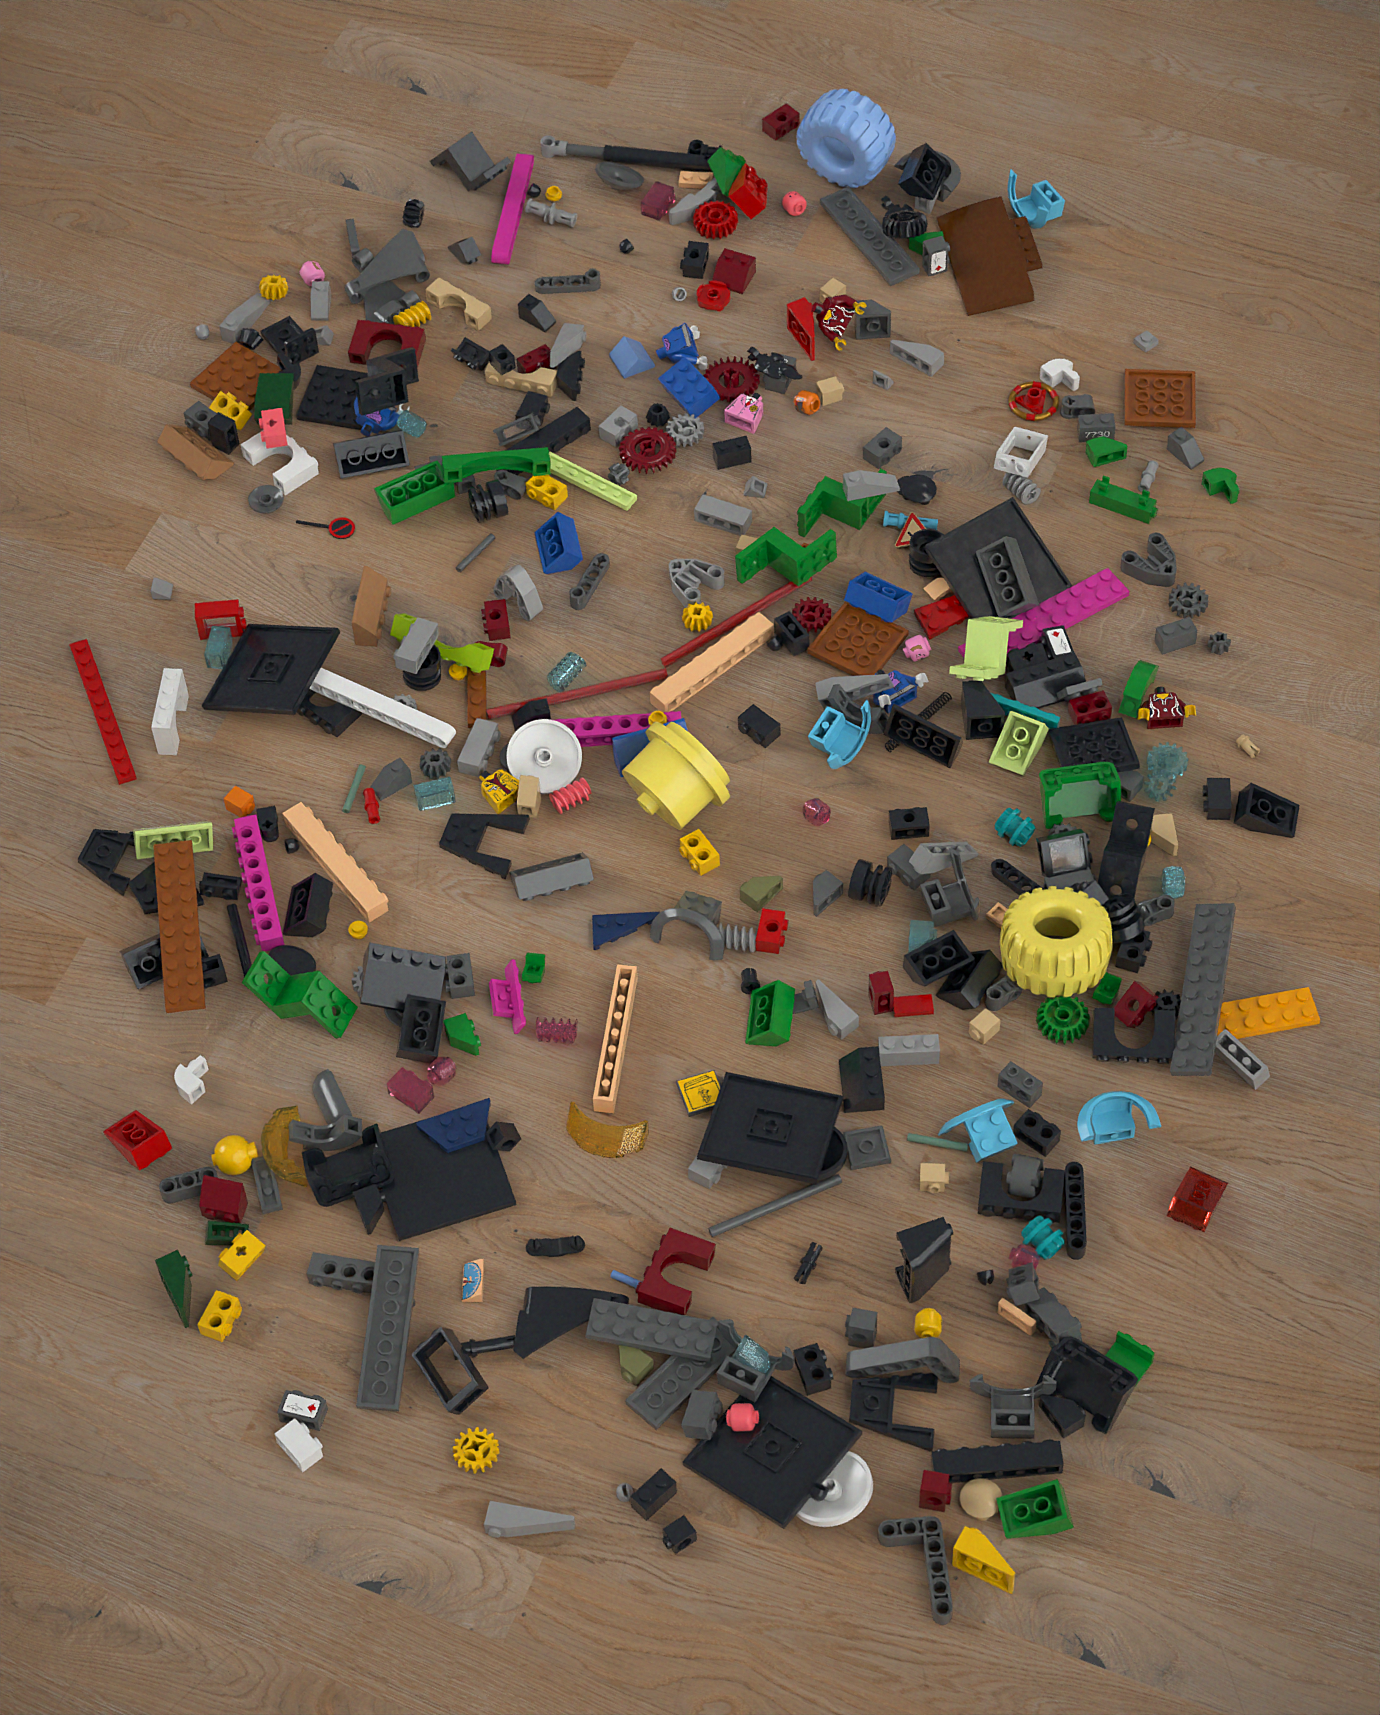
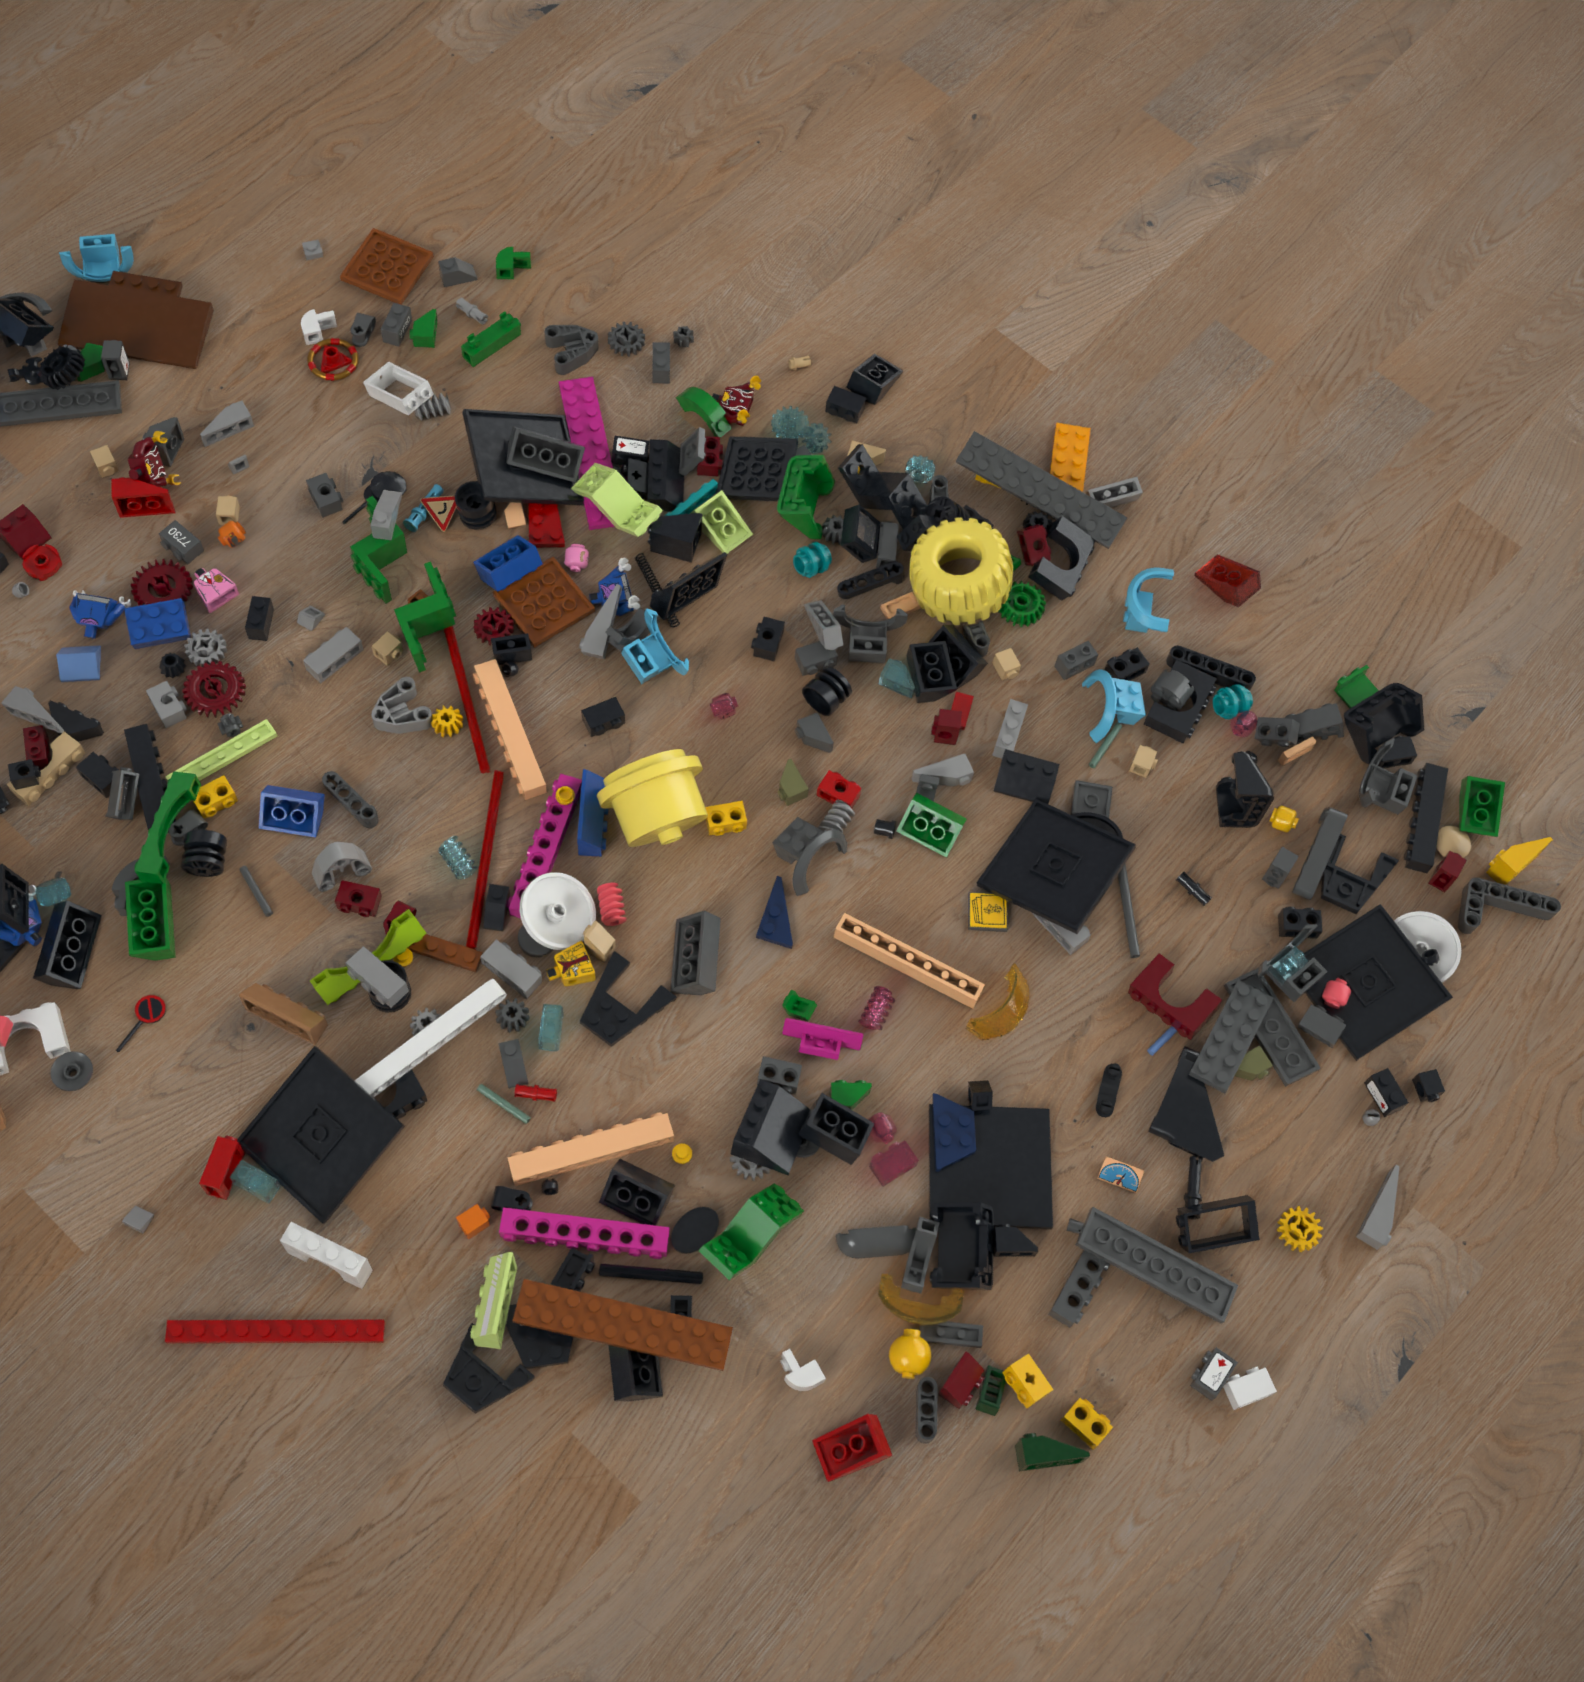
camera: 80 degrees left, 10 degrees up
(767, 365) = (173, 546): black piece -> none

